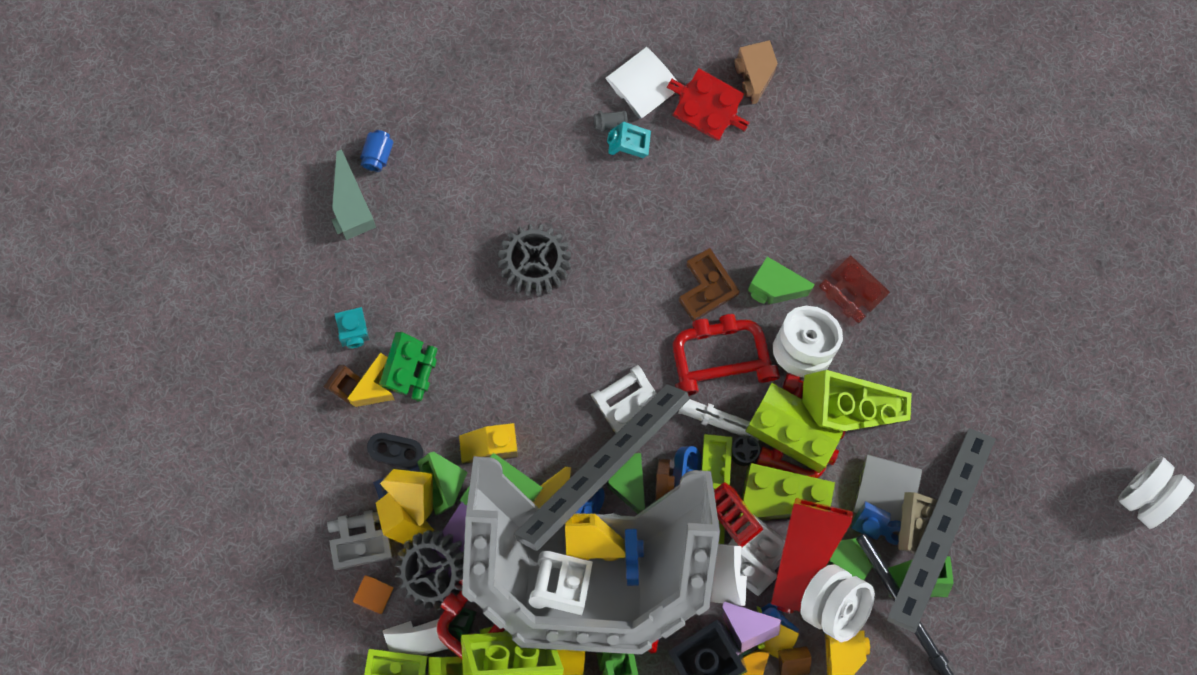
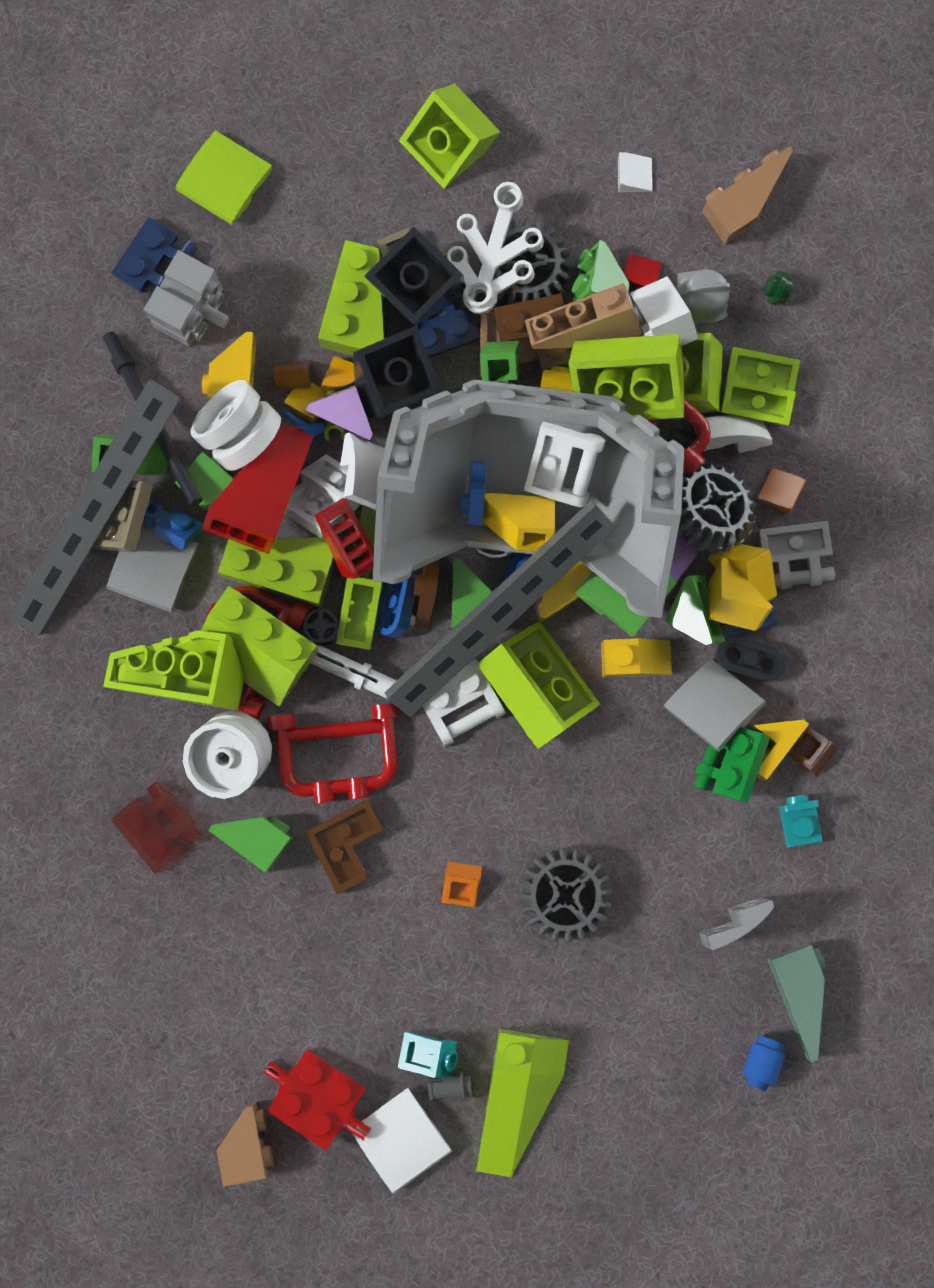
camera: 170 degrees left, 10 degrees up
(407, 236) = (744, 919): none -> light grey slope
(424, 410) = (714, 704): none -> light grey slope
(557, 125) = (521, 1087): none -> lime wedge
(566, 417) = (538, 684): none -> lime slope
(614, 264) = (461, 884): none -> orange slope

